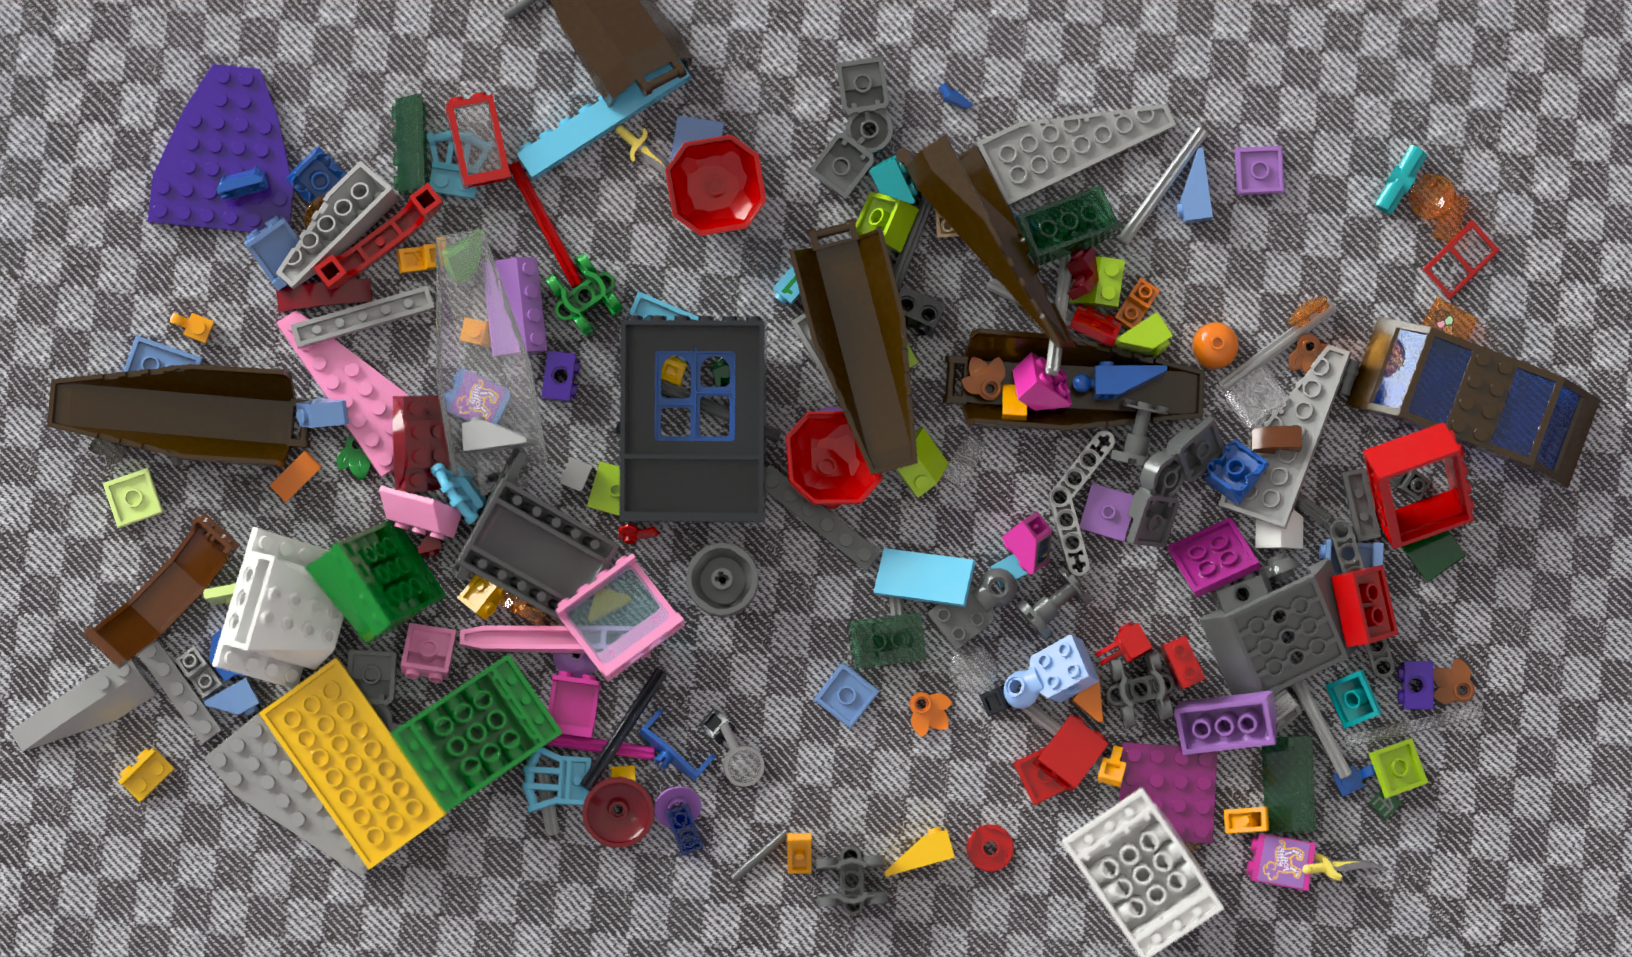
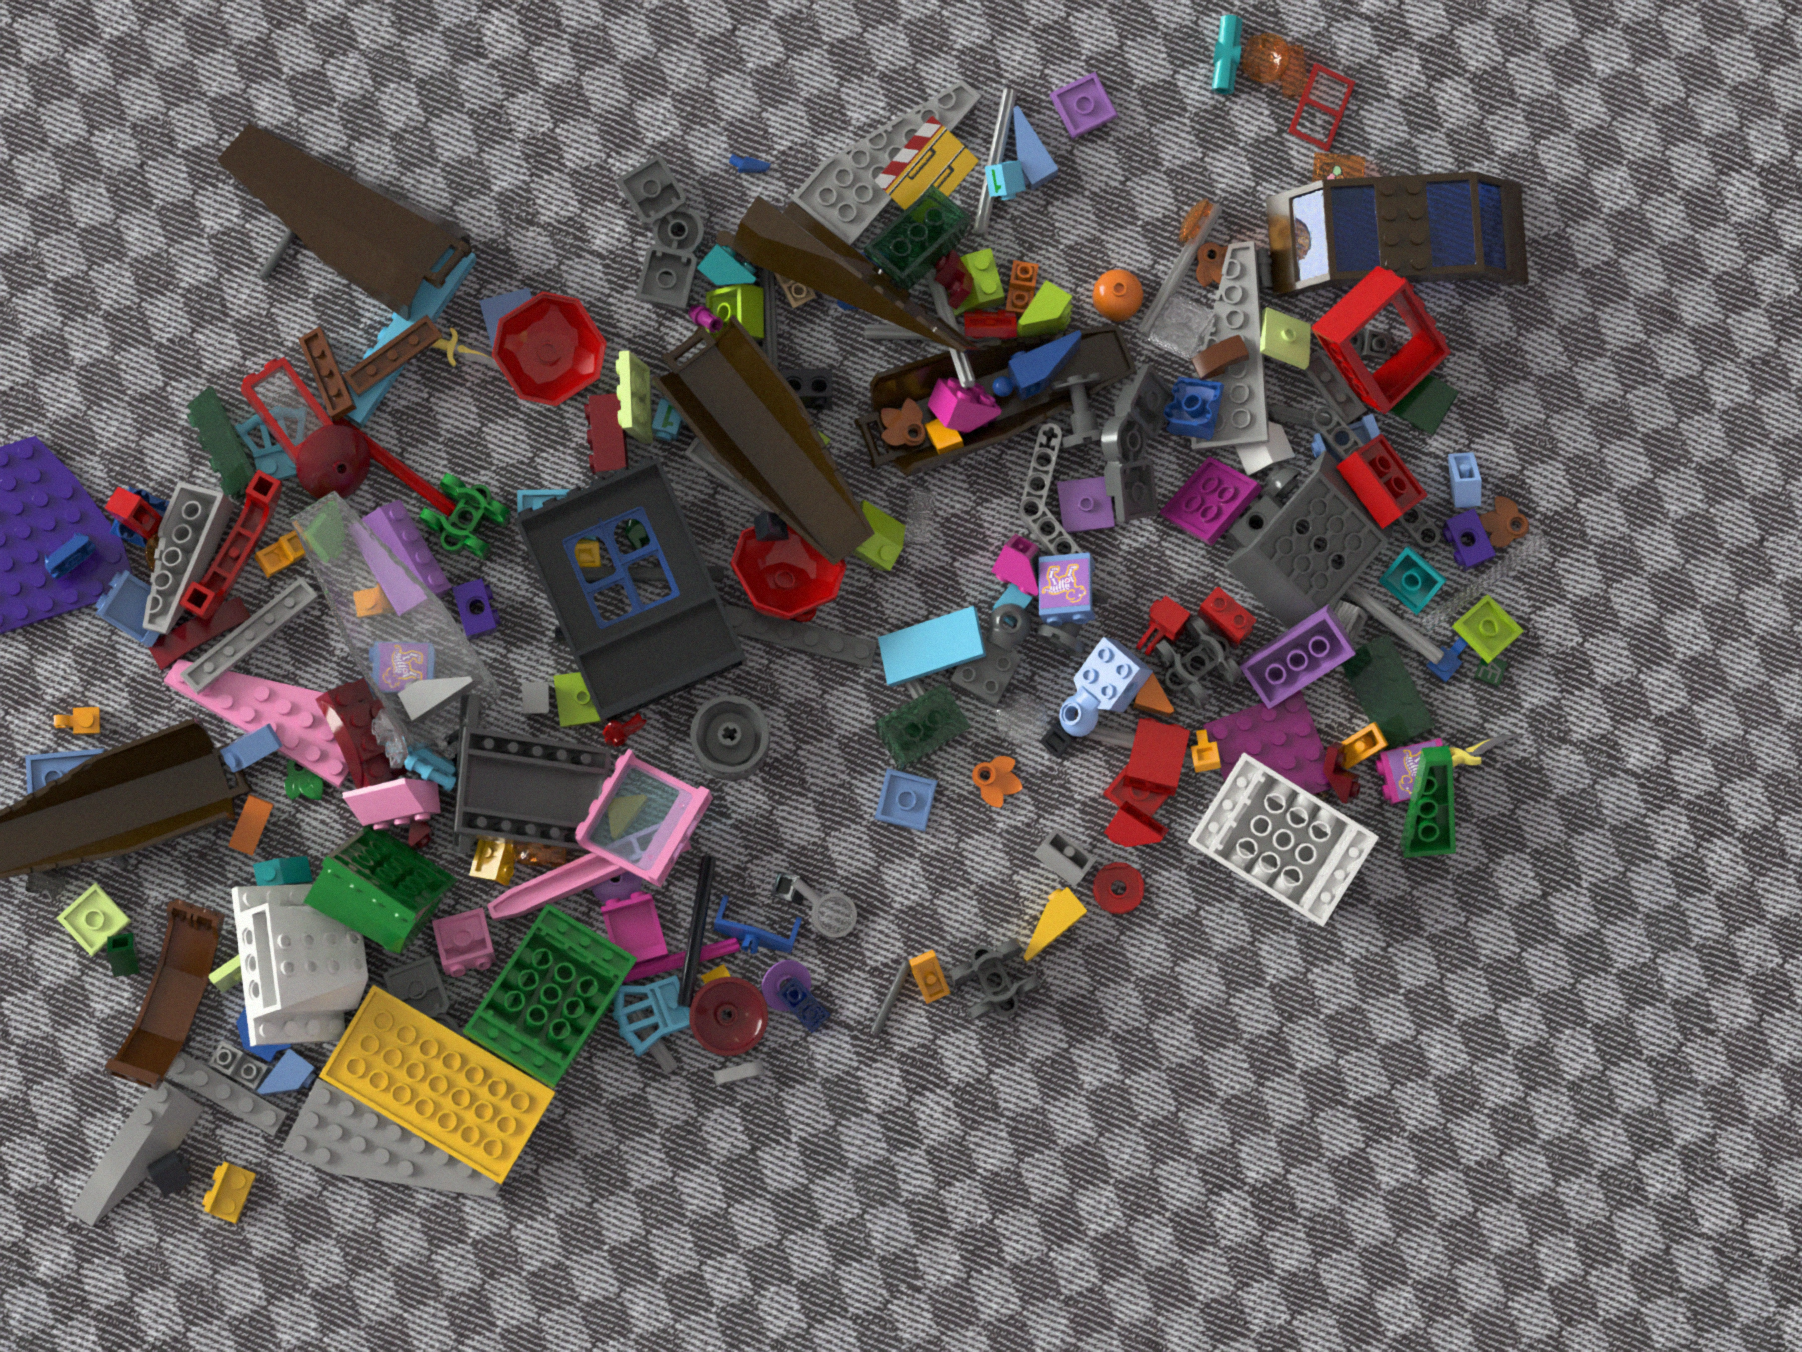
camera: 25 degrees left, 5 degrees down
(104, 737) = (170, 1173): none -> black brick
(144, 539) = (123, 954): none -> dark green brick
(304, 528) = (283, 871): none -> teal slope
(311, 172) = (134, 512): none -> red slope
(439, 457) = (390, 734): none -> clear slope
(493, 190) = (323, 454): none -> dark red dish
(523, 123) = (327, 373): none -> reddish brown plate
(583, 133) = (392, 355): none -> reddish brown plate
(606, 862) = (739, 1073): none -> light grey beam
(732, 280) = (606, 436): none -> dark red brick
(769, 257) = (635, 397): none -> yellowish green plate
(832, 419) = (770, 527): none -> black slope
(859, 212) = (703, 316): none -> magenta pin
(956, 803) = (1064, 856): none -> light grey brick
(1025, 804) = (1134, 827): none -> red slope
(1057, 580) = (1066, 588): none -> panel
(1105, 161) = (926, 160): none -> yellow sticker
(1164, 205) = (1005, 179): none -> medium azure brick
(1217, 842) = (1342, 781): none -> dark red slope
(1280, 900) = (1430, 813): none -> green wedge
(1339, 446) = (1285, 338): none -> yellowish green plate
(1436, 632) = (1464, 480): none -> light blue slope

